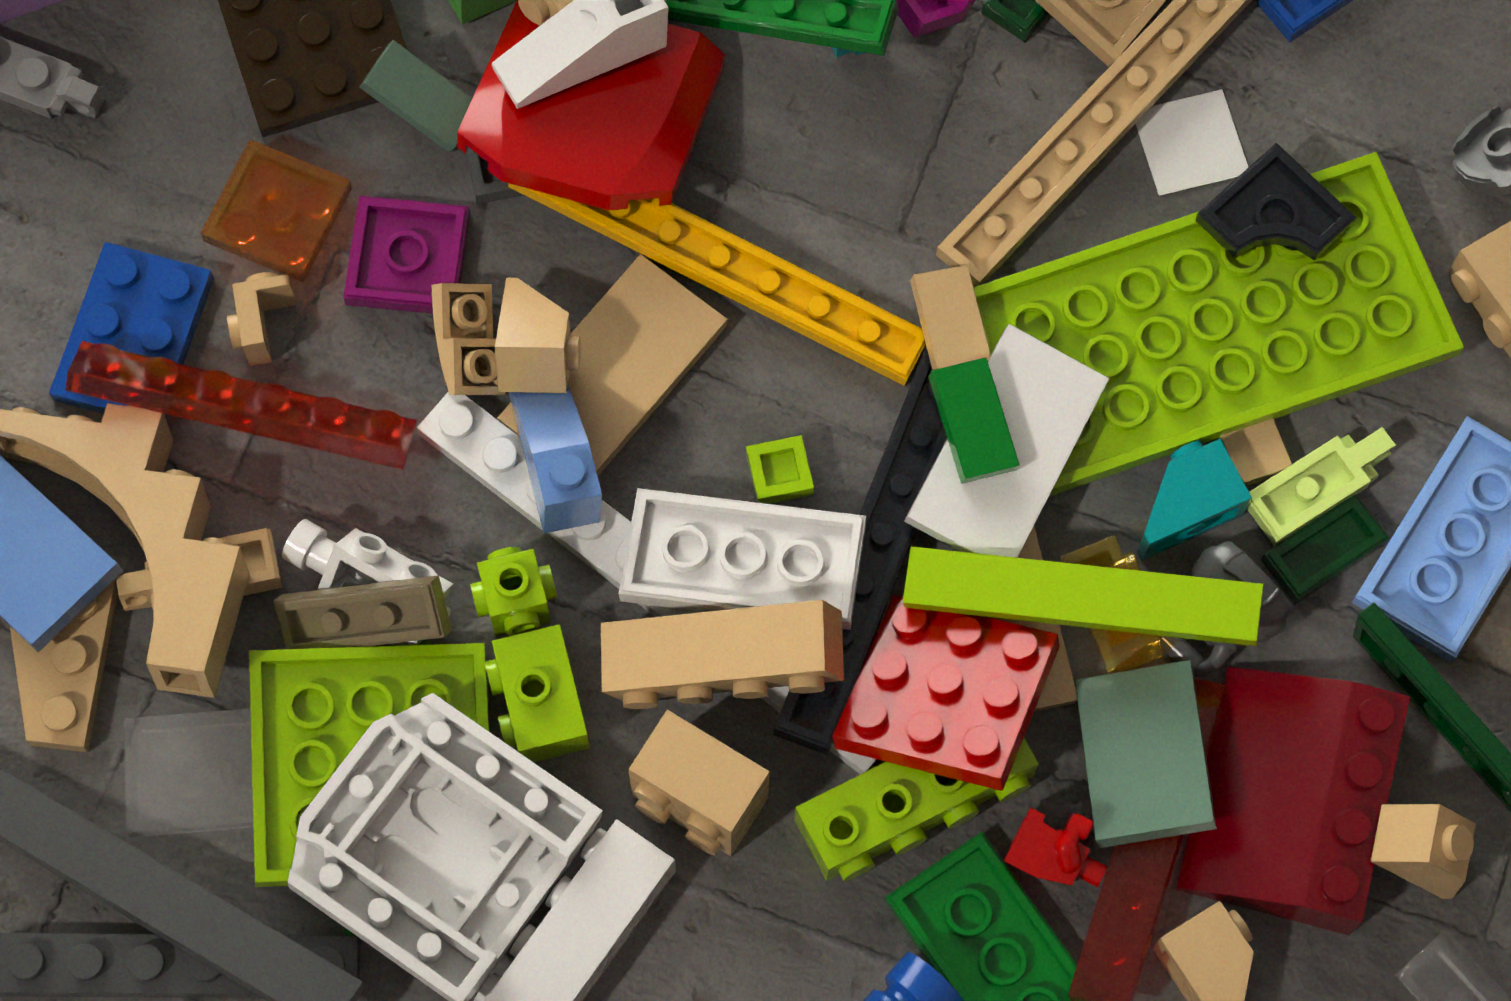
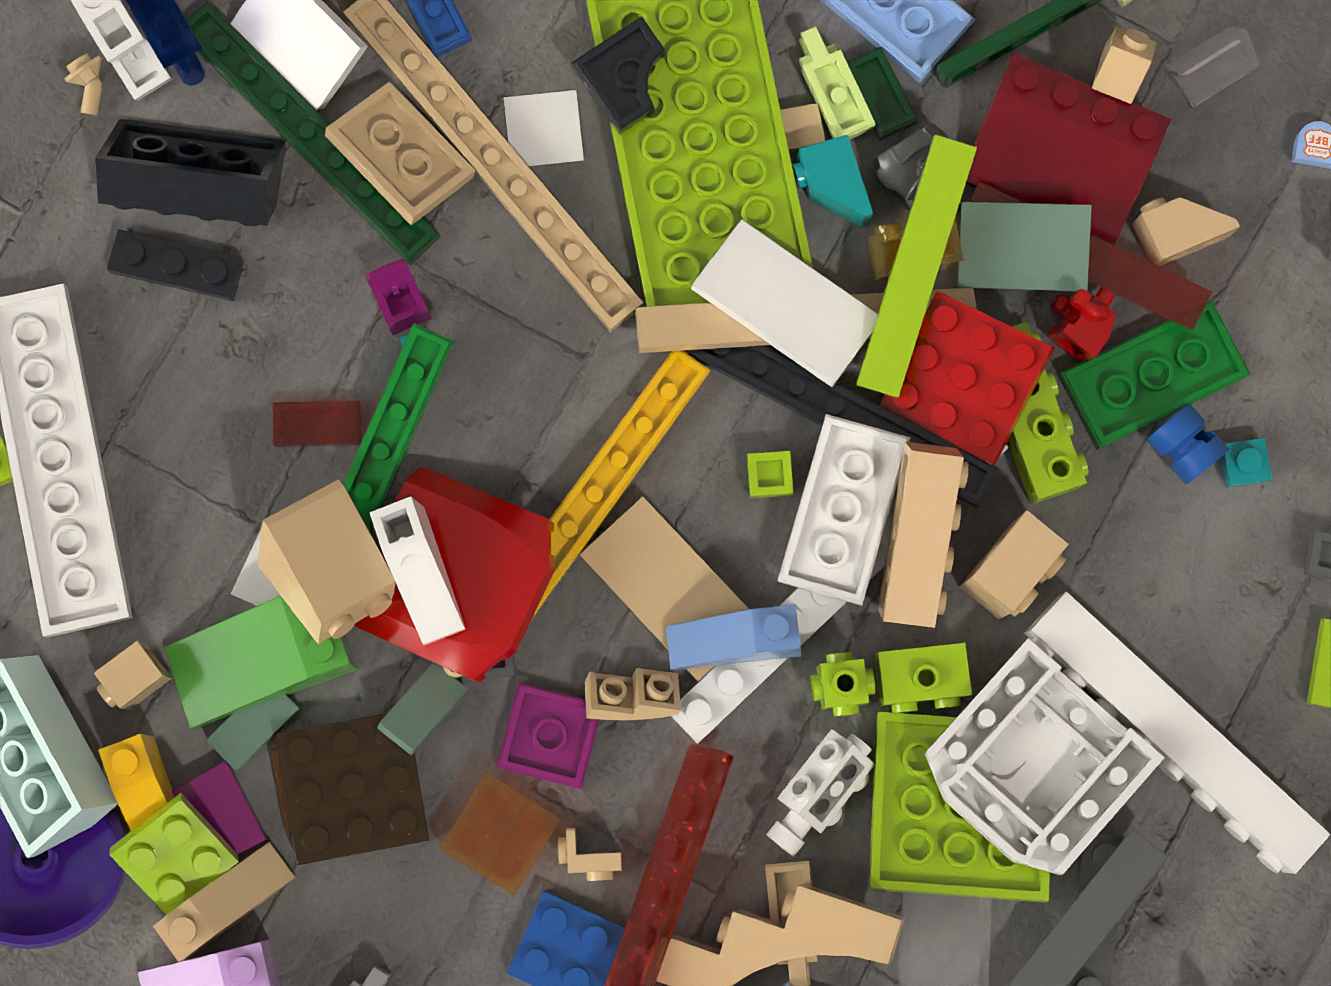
camera: 85 degrees left, 10 degrees up
(364, 614) = (851, 799): dark tan tile -> none
(533, 342) = (651, 642): tan slope -> none
(973, 420) = (769, 321): green tile -> none

